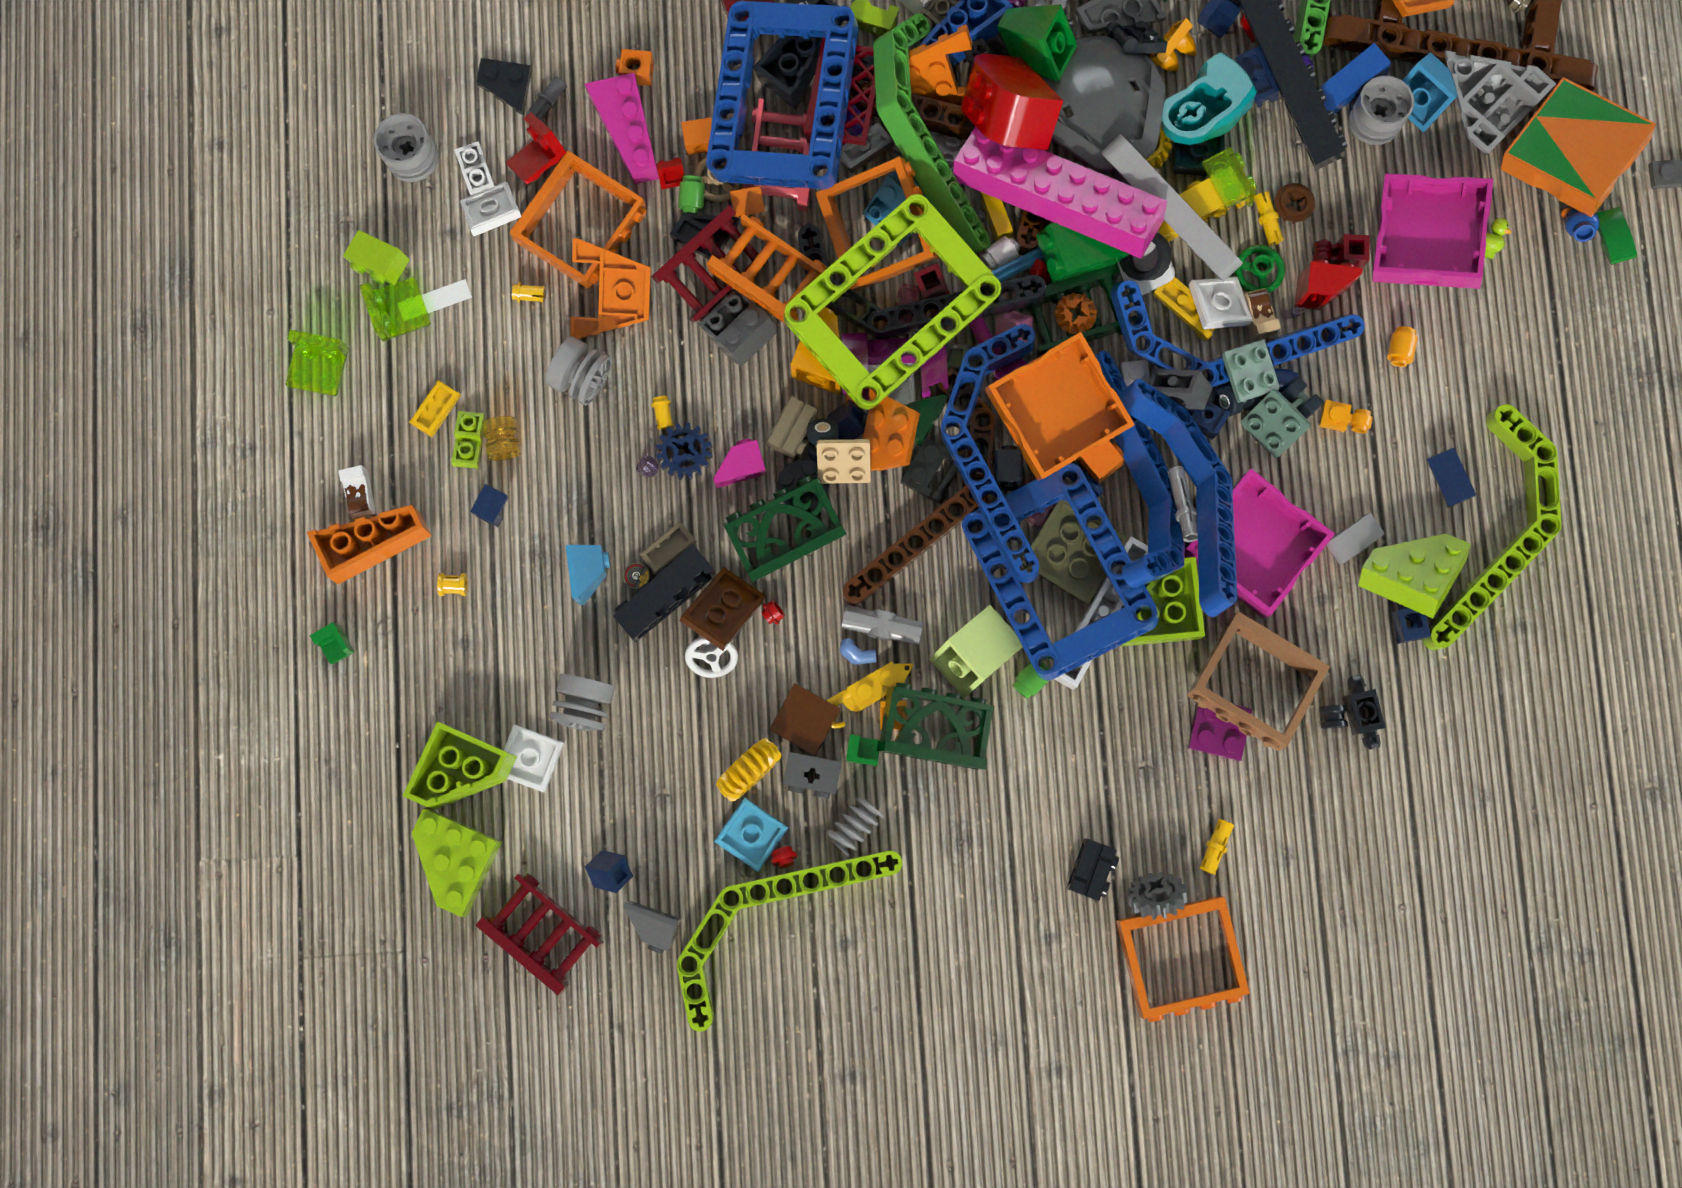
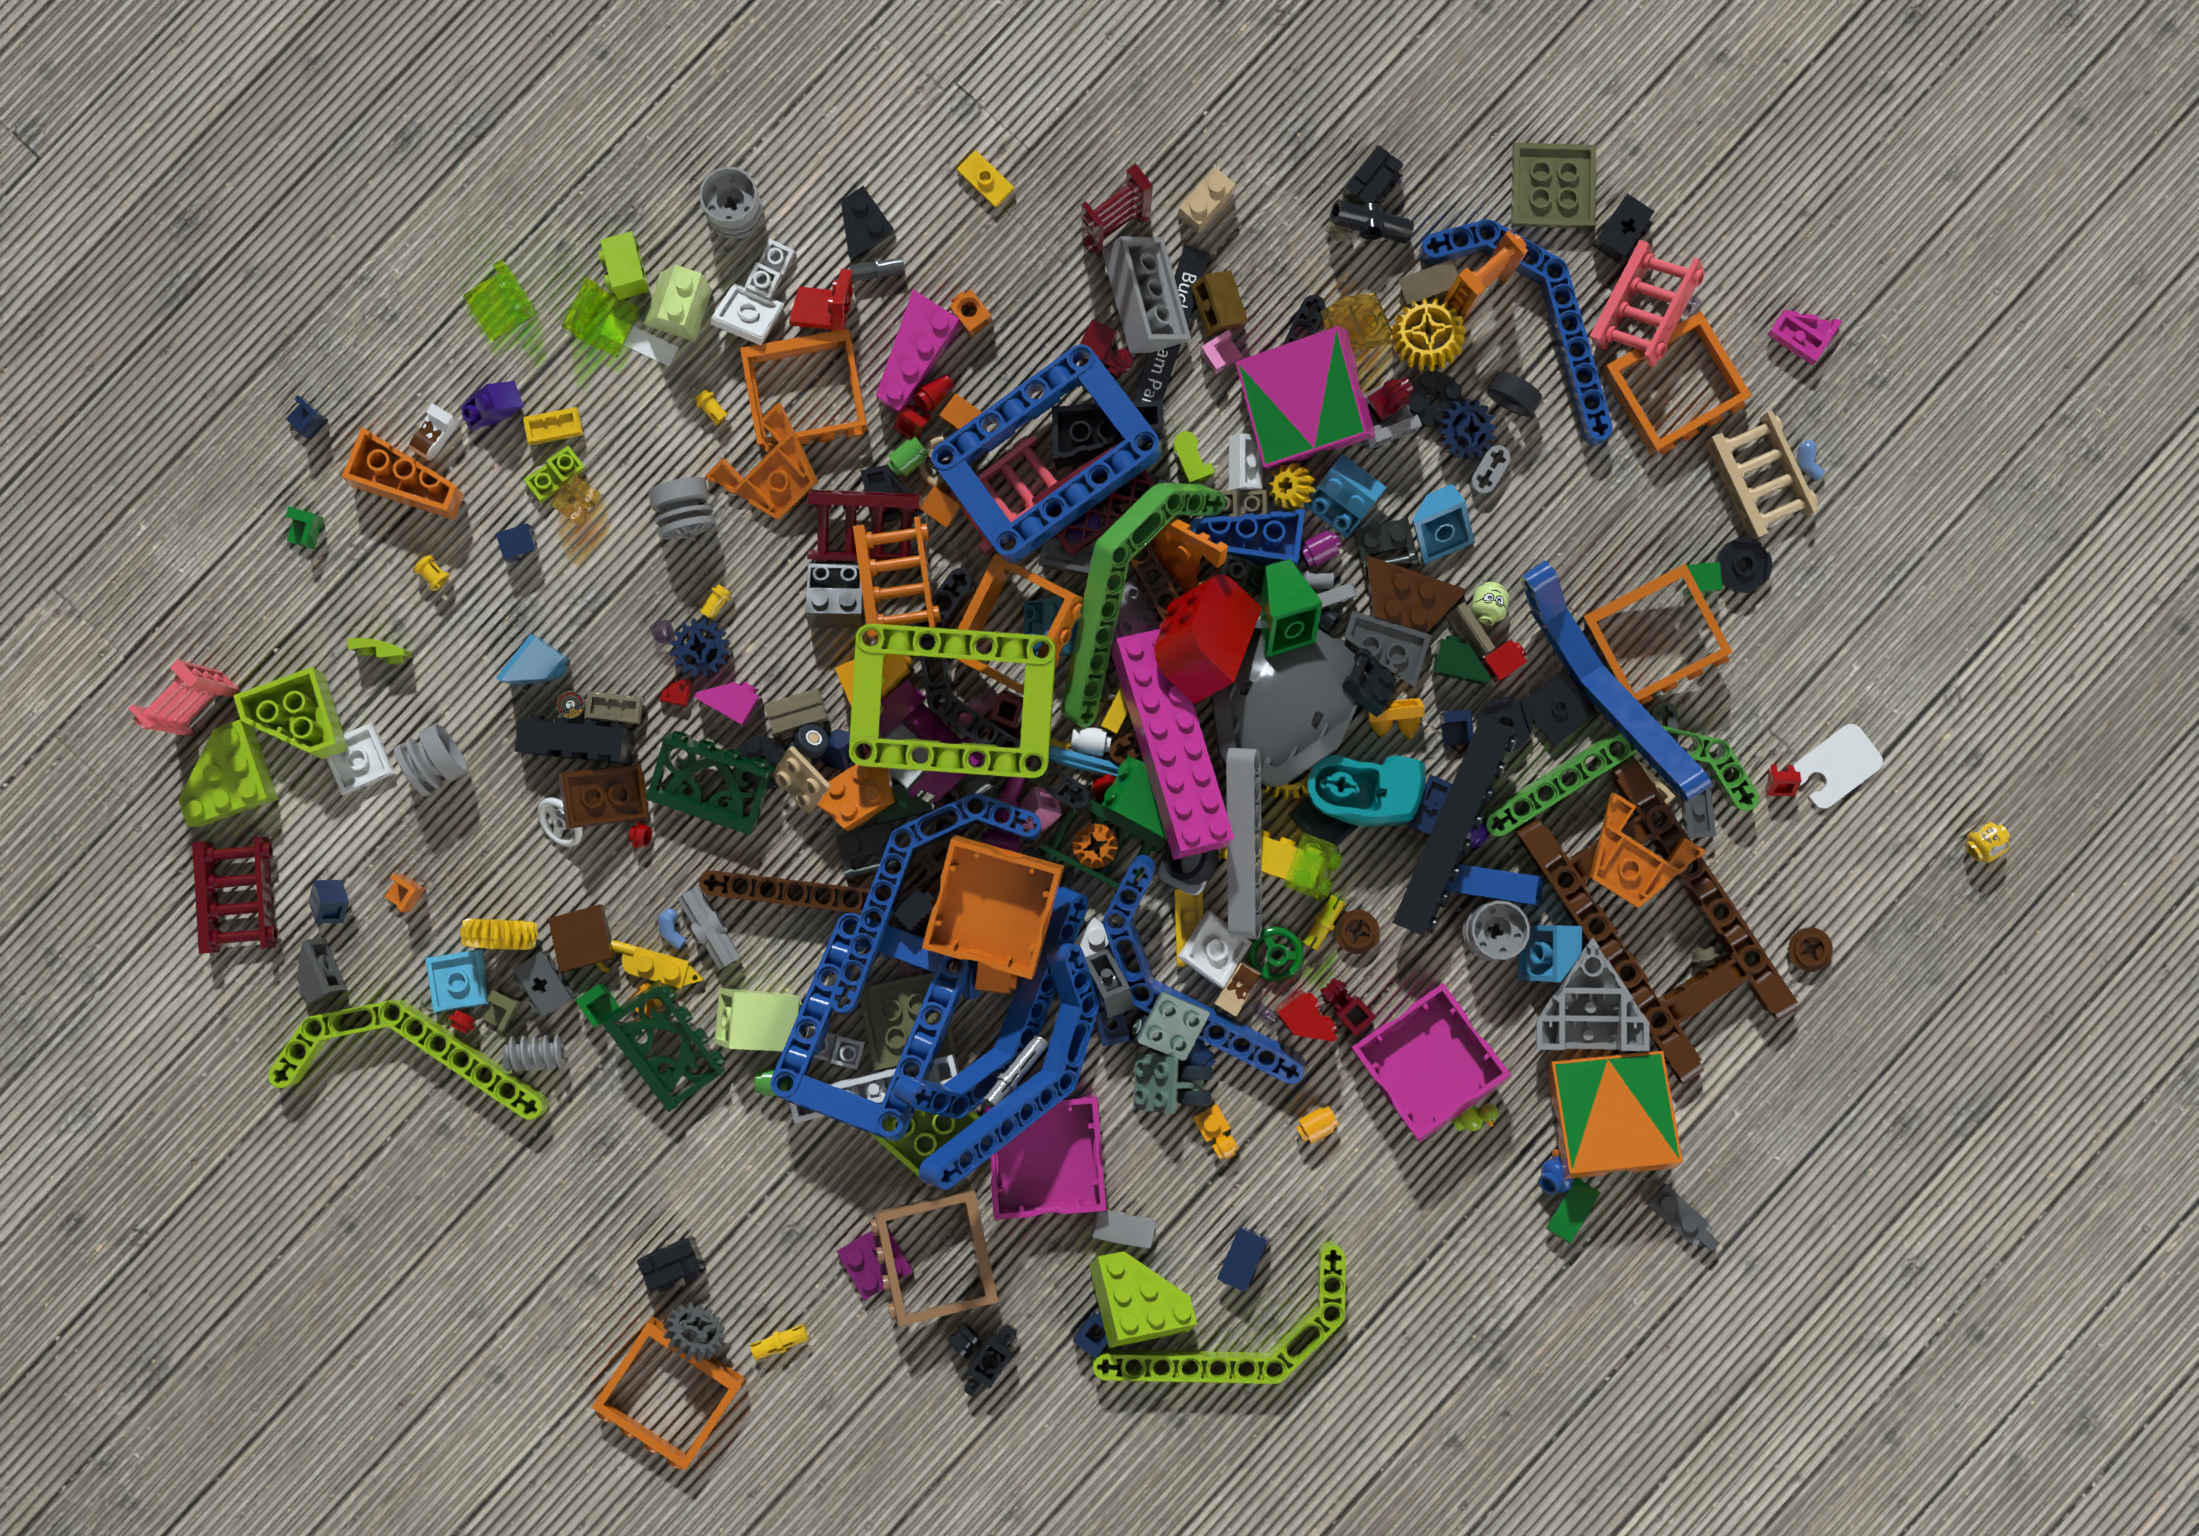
camera: 45 degrees right, 5 degrees up
(260, 569) = (306, 418): none -> dark blue panel
(371, 828) = (184, 698): none -> coral fence
(379, 435) = (491, 405): none -> dark purple slope
(434, 245) = (678, 302): none -> yellowish green slope
(477, 663) = (384, 650): none -> lime slope
(654, 812) = (404, 892): none -> orange panel
(664, 141) = (932, 393): none -> red cone
(699, 497) = (678, 693): none -> red tile
(801, 822) = (502, 1009): none -> olive panel
(1053, 614) = (839, 1049): none -> white slope

